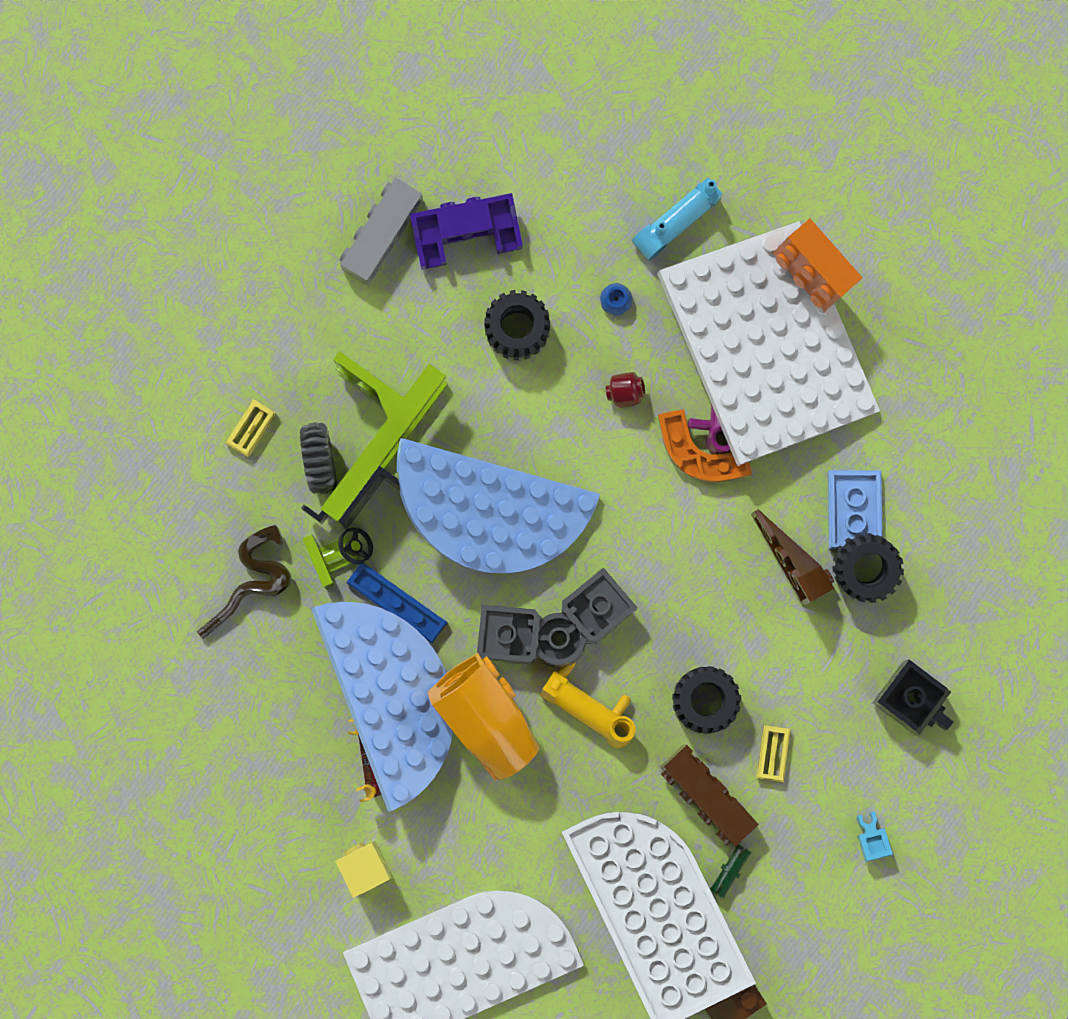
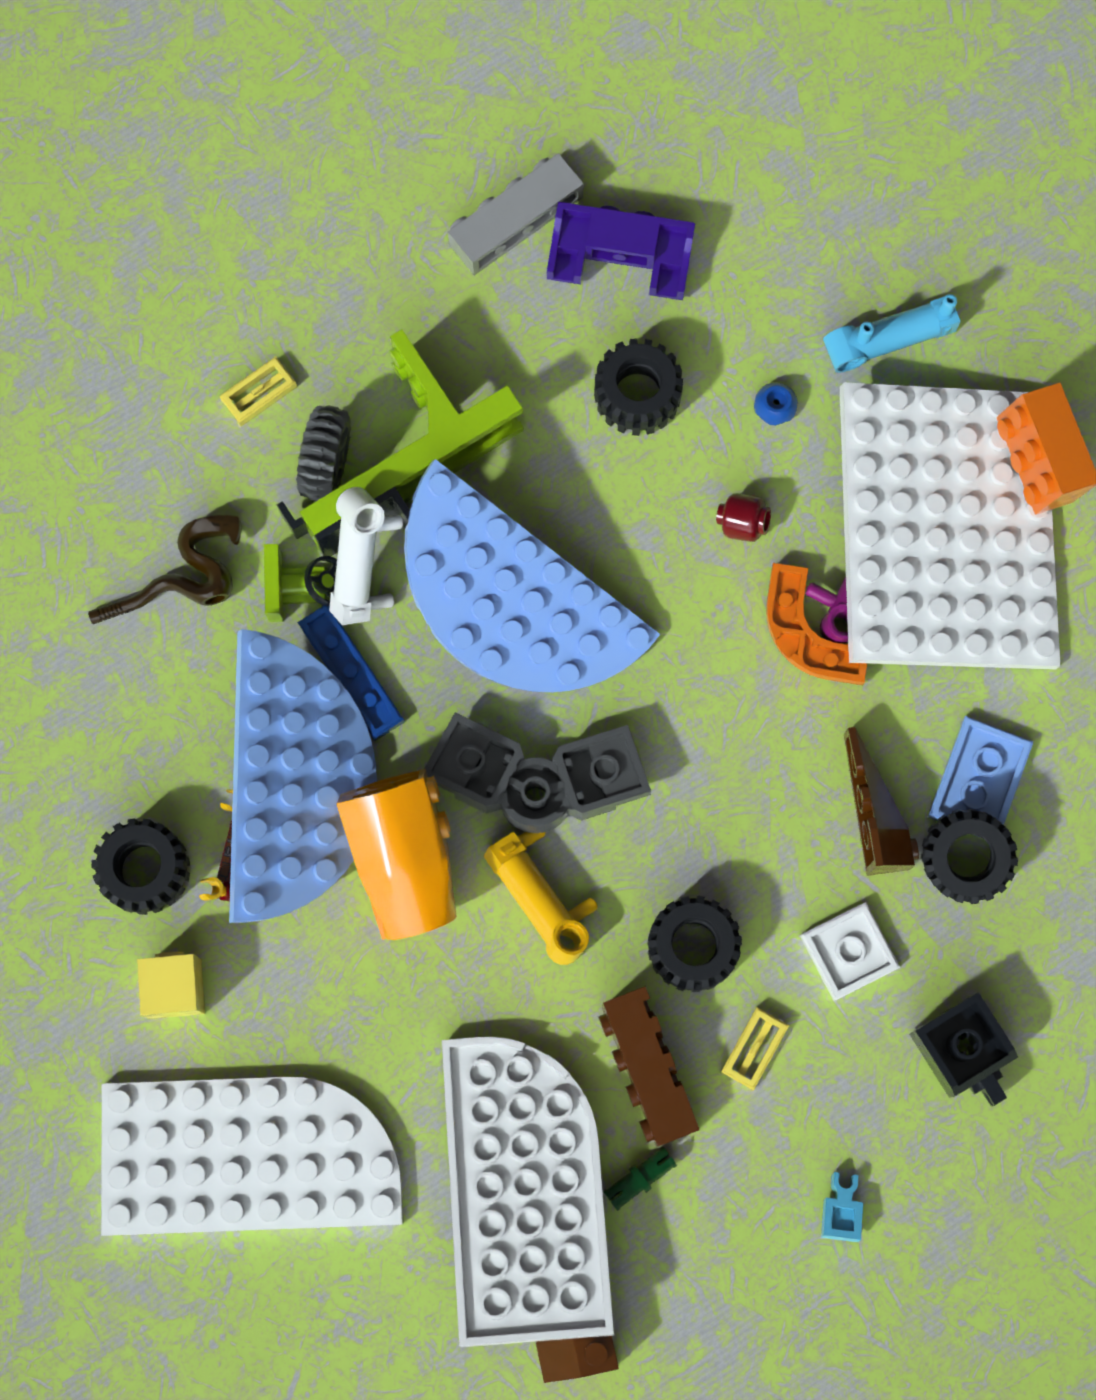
camera: 25 degrees right, 5 degrees down
(285, 795) = (116, 849): none -> black tyre
(367, 502) = (359, 523): none -> white piece
(811, 662) = (849, 951): none -> white tile

